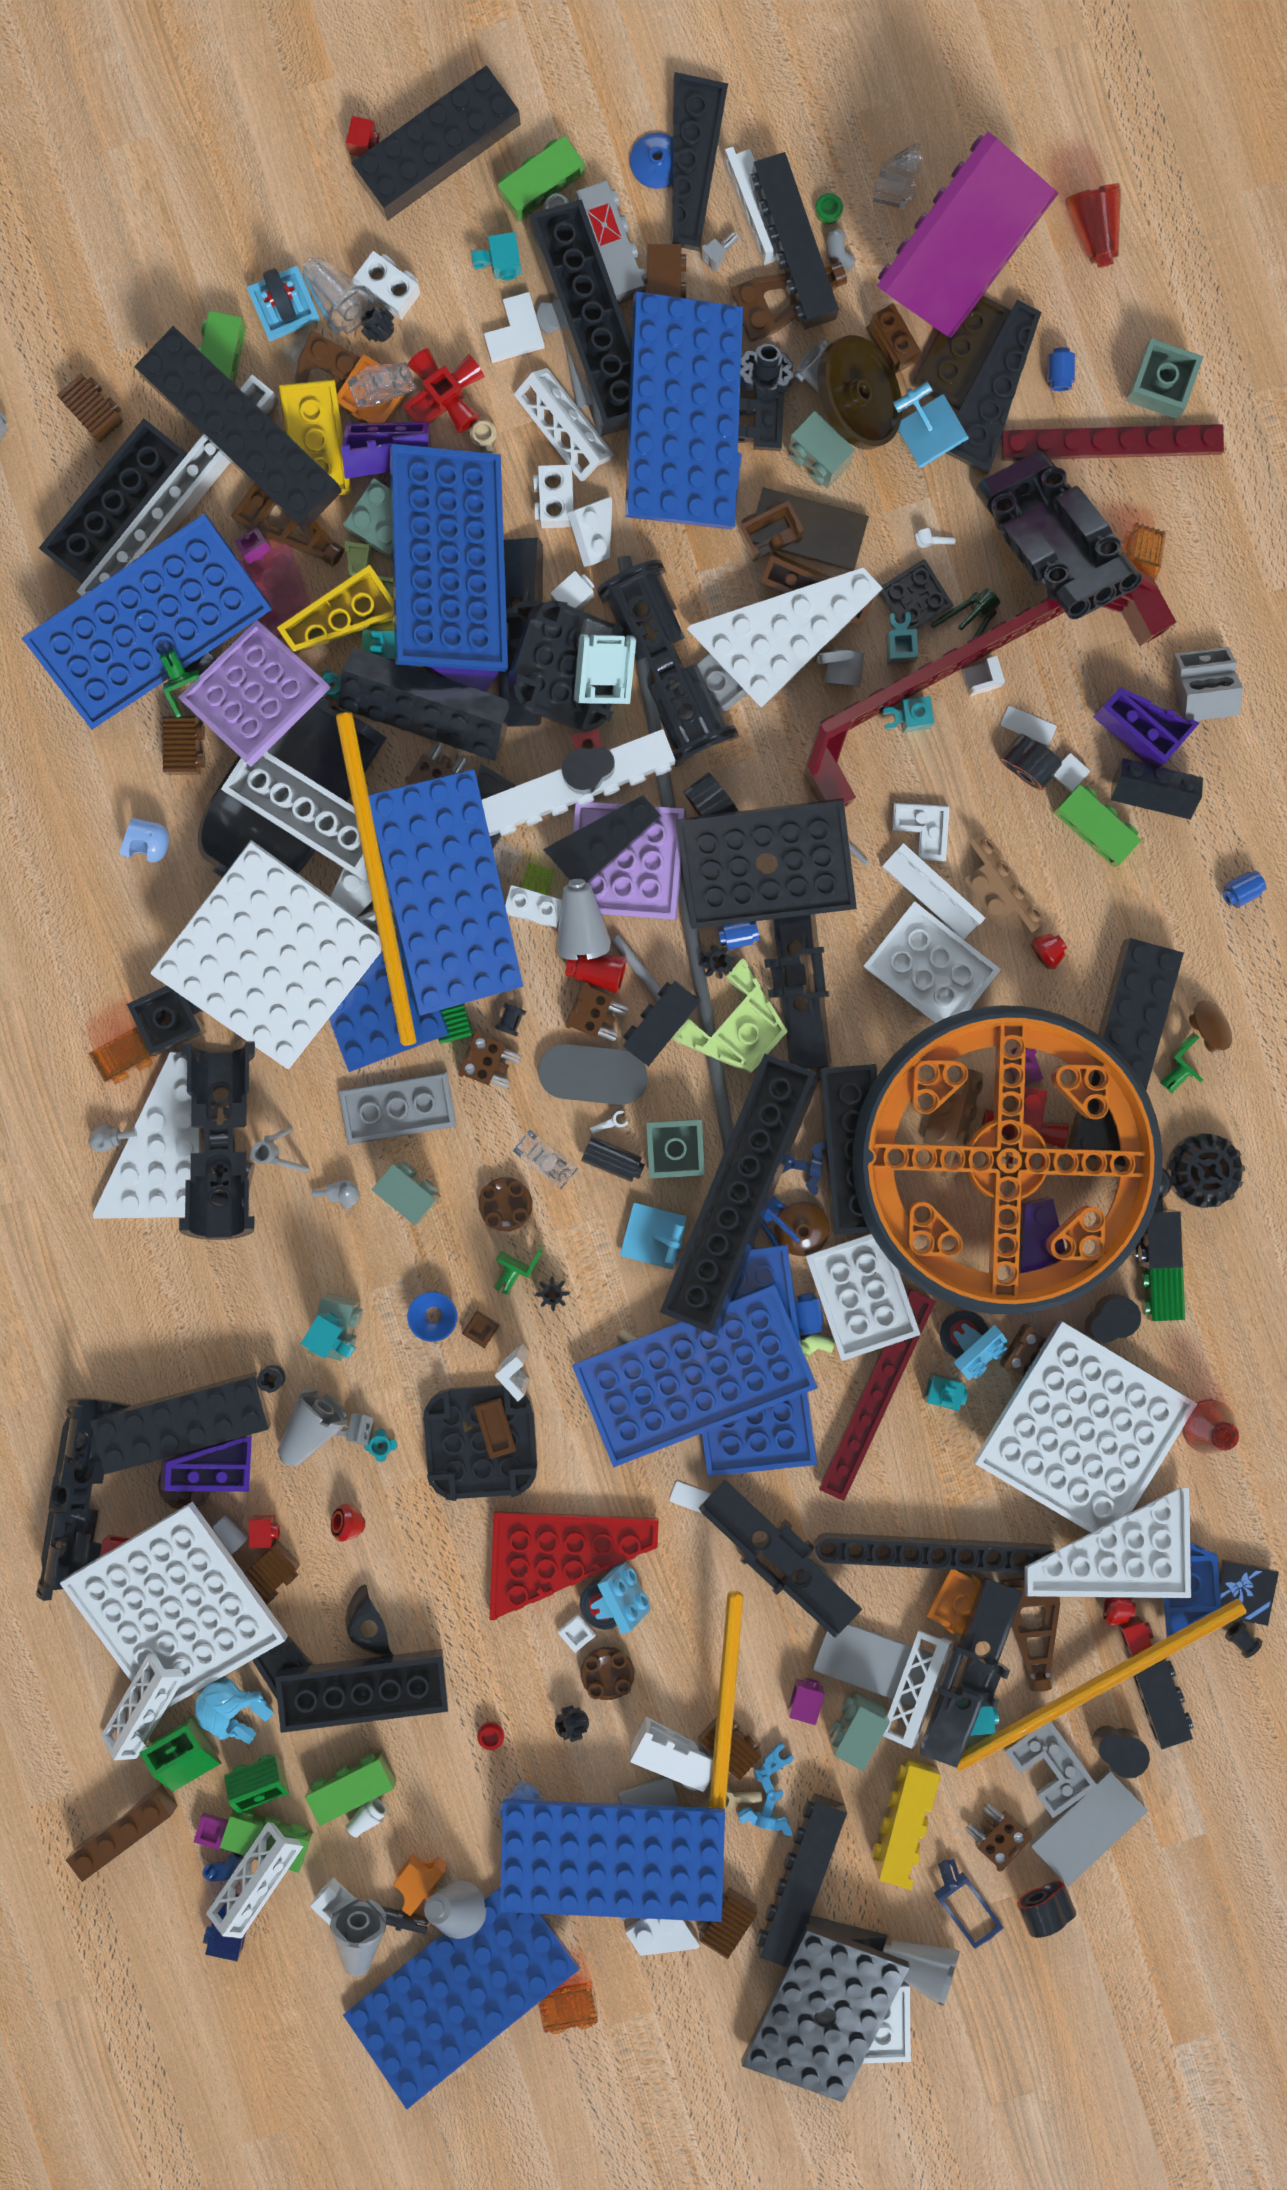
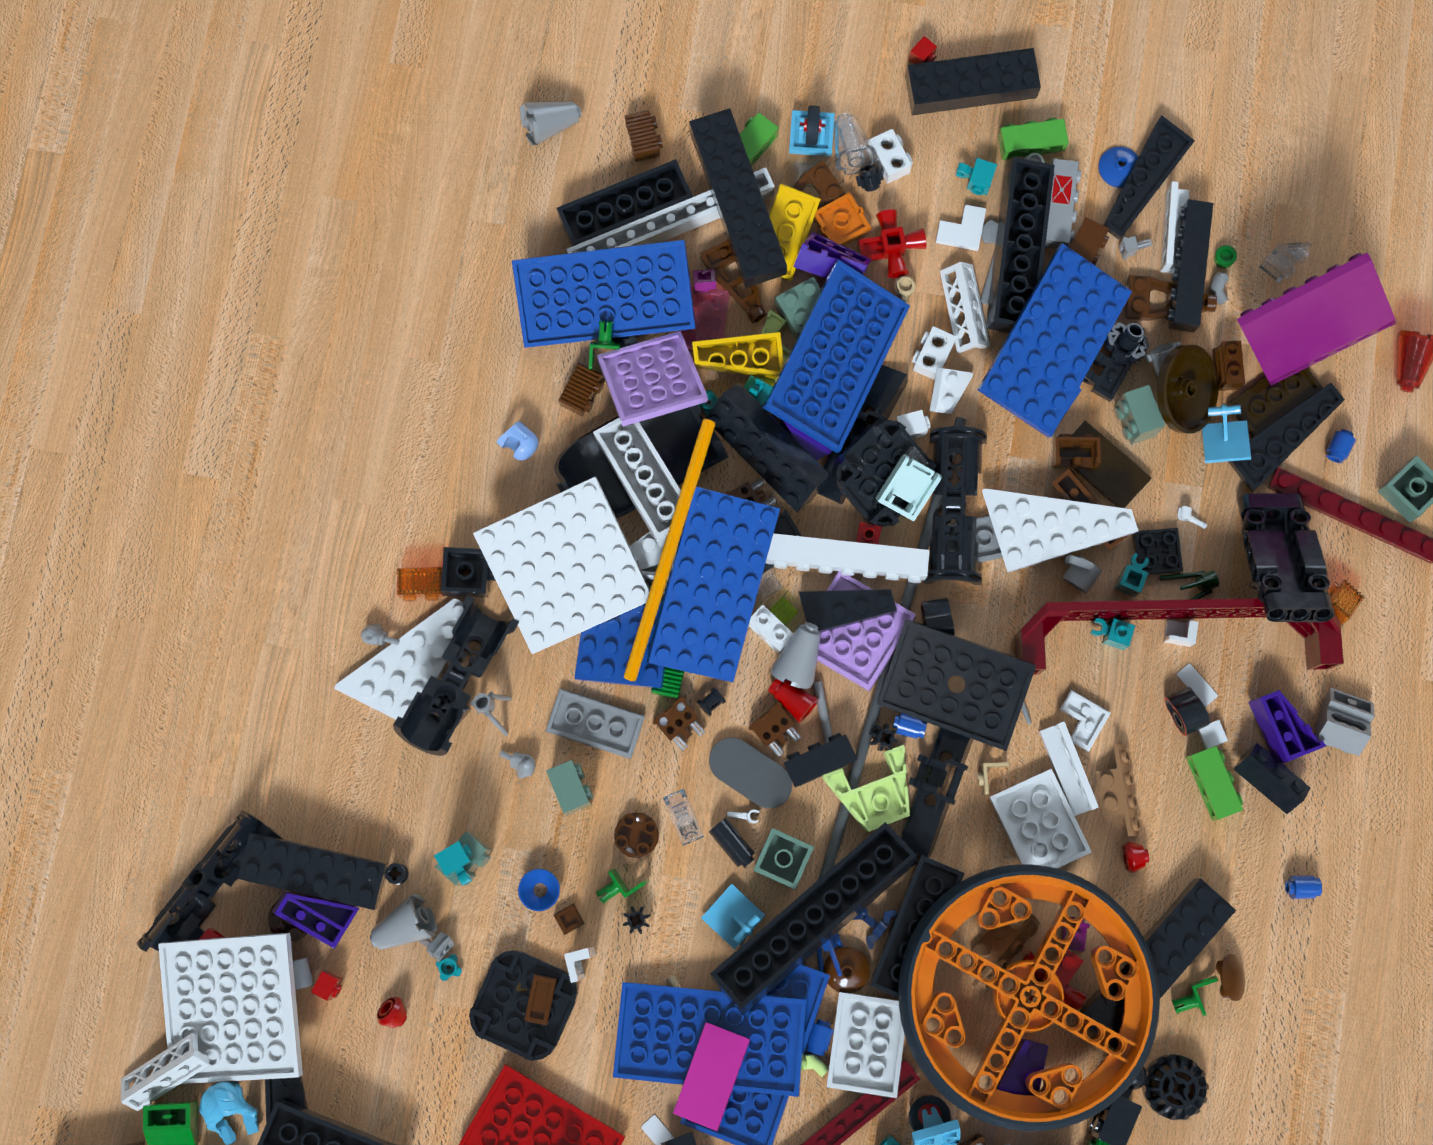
camera: 30 degrees right, 10 degrees down
(271, 1571) = (317, 1019): reddish brown brick -> none
(361, 1610) = (364, 1086): black piece -> none
(381, 383) = (851, 217): clear slope -> none
(587, 769) = (861, 550): black piece -> none
(716, 1414) = (711, 1076): none -> dark pink tile
(845, 949) = (982, 777): none -> tan bracket

